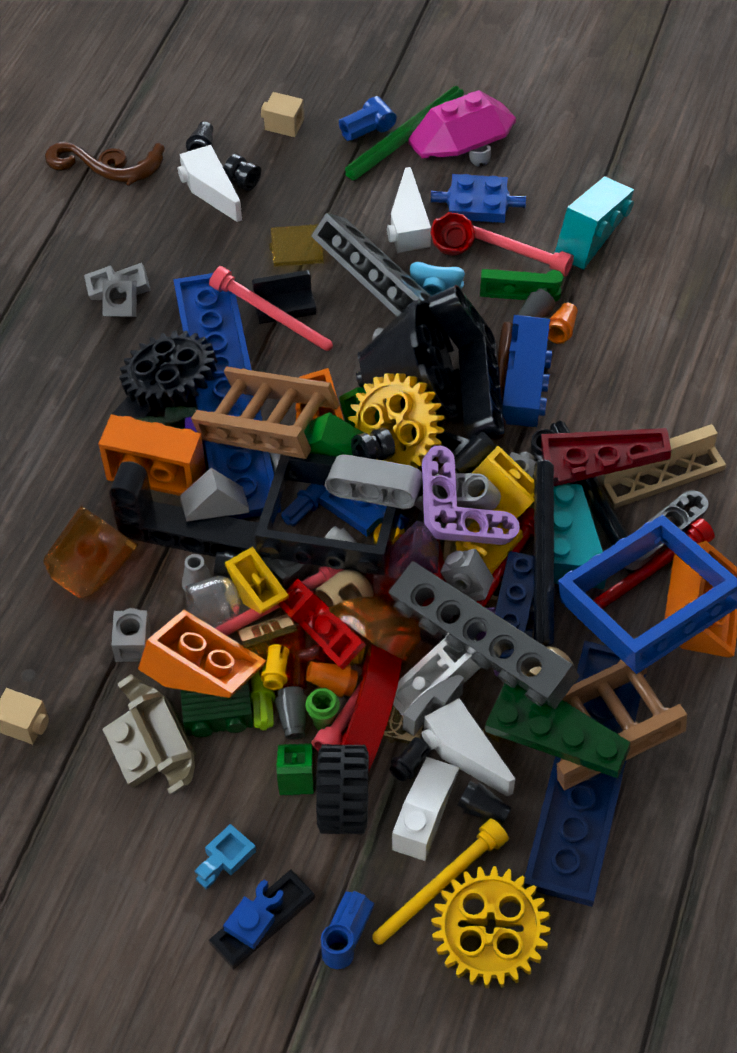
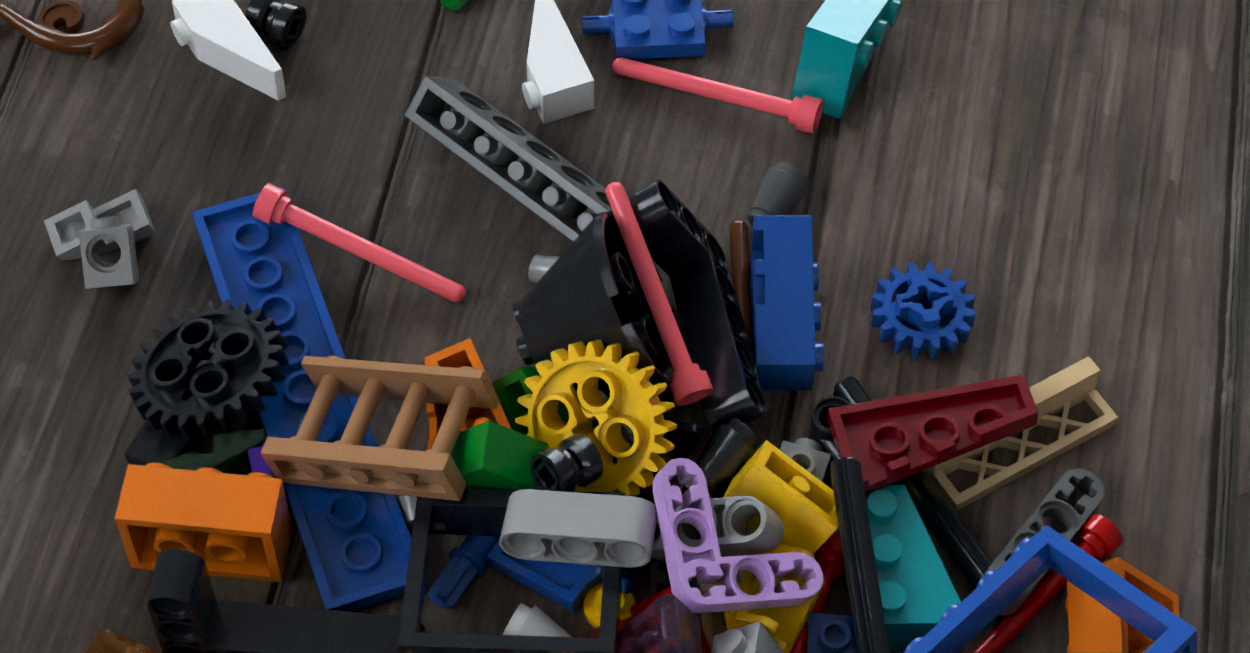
camera: 10 degrees left, 0 degrees up
(213, 497) = (315, 583): light grey slope -> none
(287, 292) = (379, 213): black panel -> none
(295, 246) = (379, 130): clear yellow piece -> none
(435, 278) = (615, 160): medium azure piece -> none
(452, 234) = (628, 85): red hair -> none
(457, 408) = (688, 381): none -> coral piece
(519, 285) = (746, 157): green plate -> none
(562, 323) = (827, 212): orange cone -> none
(613, 387) = (923, 309): none -> blue gear

